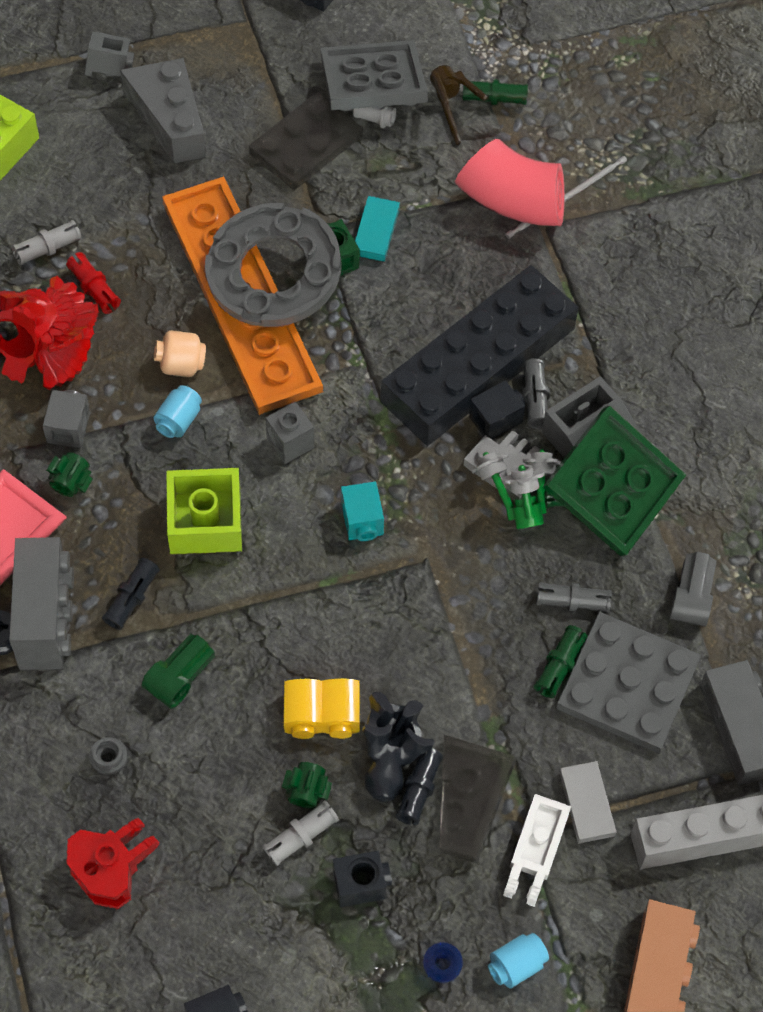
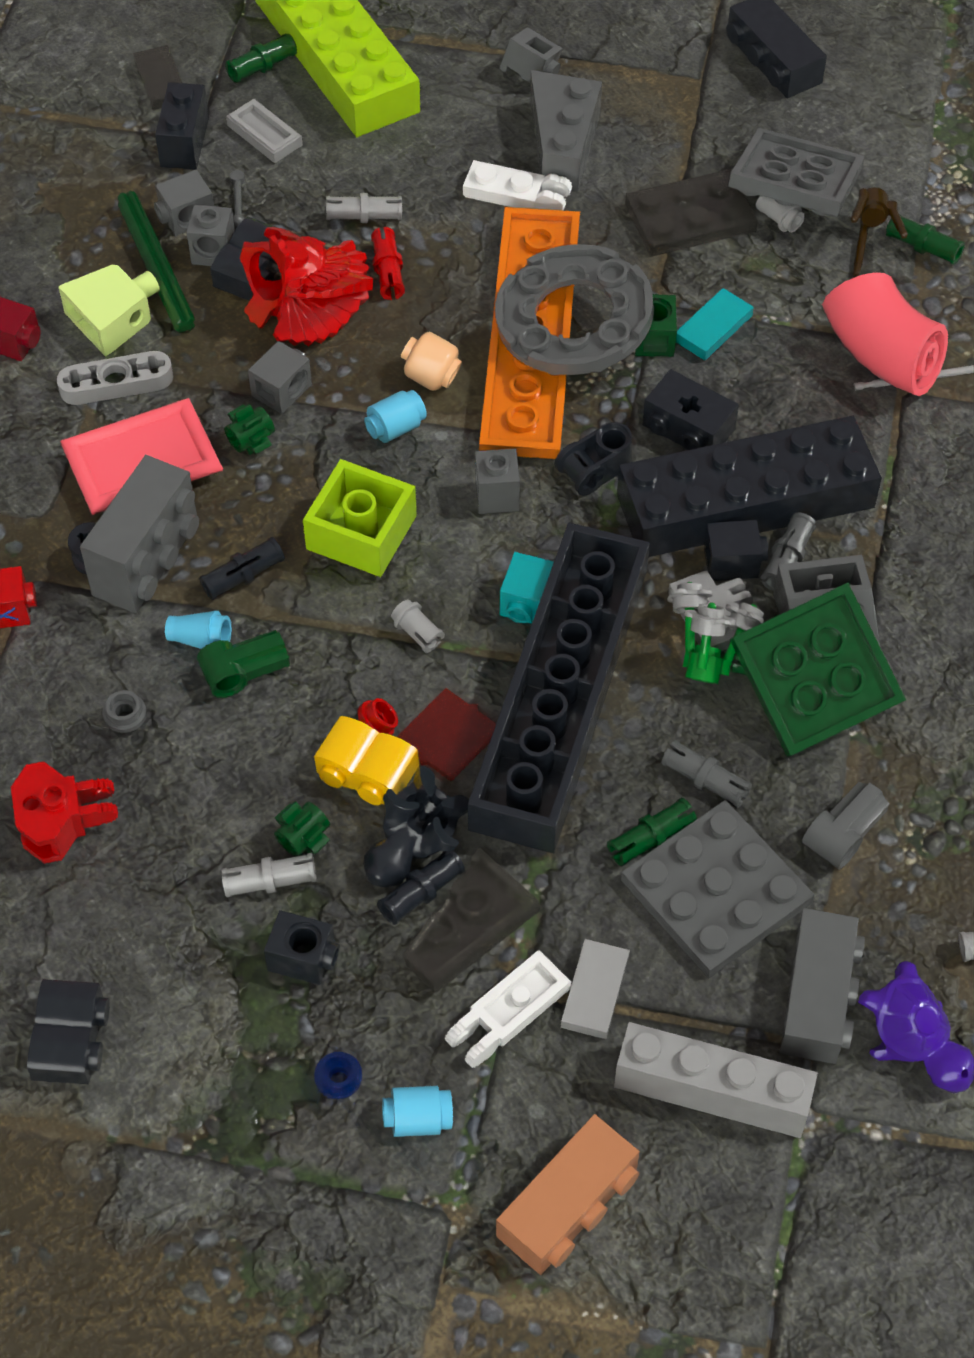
camera: 30 degrees right, 5 degrees down
(129, 660) = (198, 628): none -> medium azure cone
(158, 174) = (515, 187): none -> white hinge
(294, 578) = (417, 625): none -> light grey pin
(309, 667) = (378, 715): none -> red plate
(350, 384) = (596, 457): none -> black piece
(367, 654) = (449, 734): none -> clear red piece
(403, 313) = (689, 412): none -> black brick
(435, 581) = (558, 689): none -> black brick

